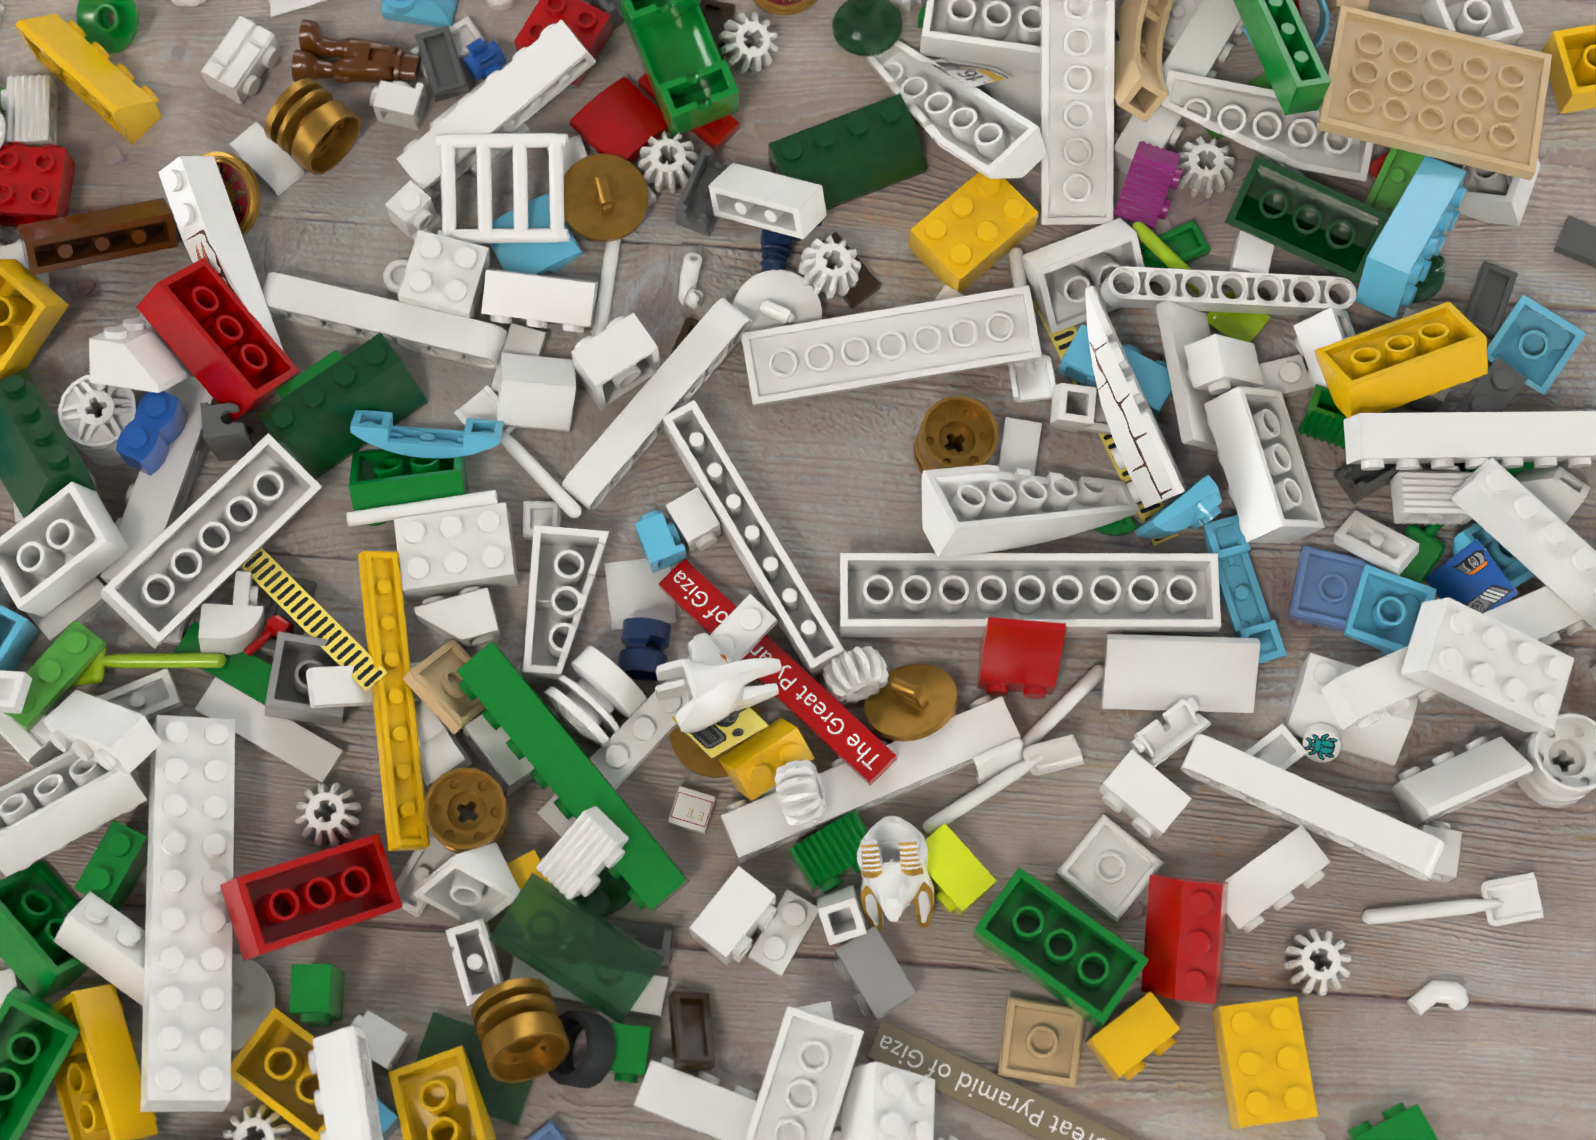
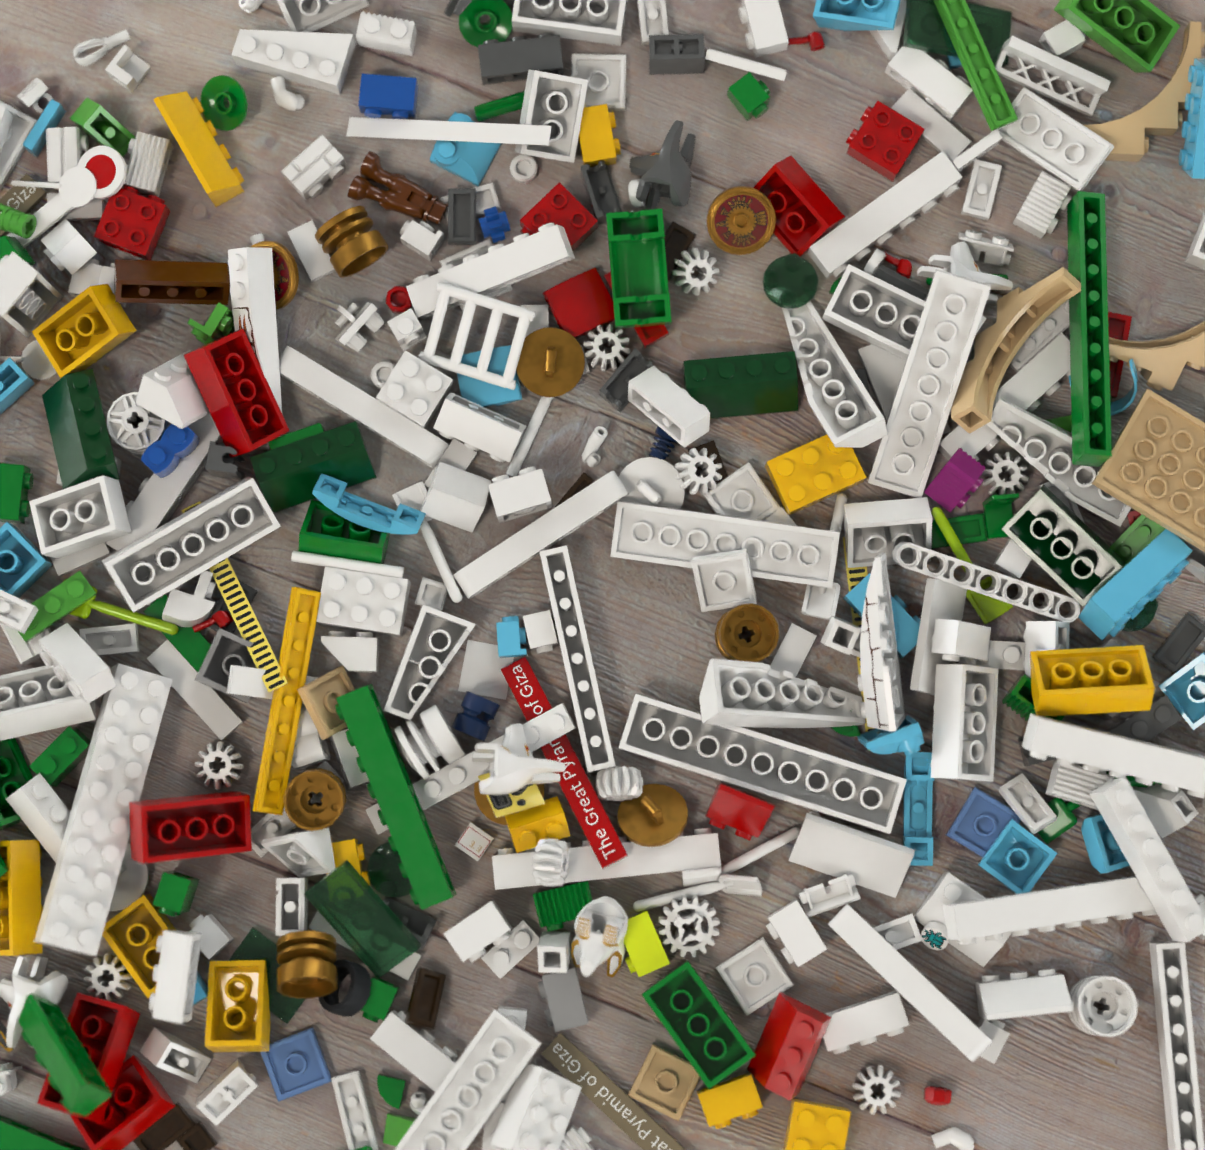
camera: 20 degrees right, 10 degrees up
(169, 260) = (218, 325): none -> bright green bracket
(359, 212) = (366, 316): none -> white hips
(391, 180) = (398, 300): none -> red tile
(583, 854) = (385, 857): white brick -> none
(892, 282) = (742, 496): none -> white tile
(903, 387) = (724, 580): none -> white tile
(967, 73) = (850, 348): sticker -> none
(1008, 811) = (681, 936): none -> white gear
(1212, 212) = (997, 513): none -> green bracket
(1397, 945) = (937, 1095): none -> red tile
(1472, 579) = (1084, 857): blue sticker -> none
(1487, 665) = (1065, 929): white brick -> none
(1504, 901) = (1025, 1087): white piece -> none

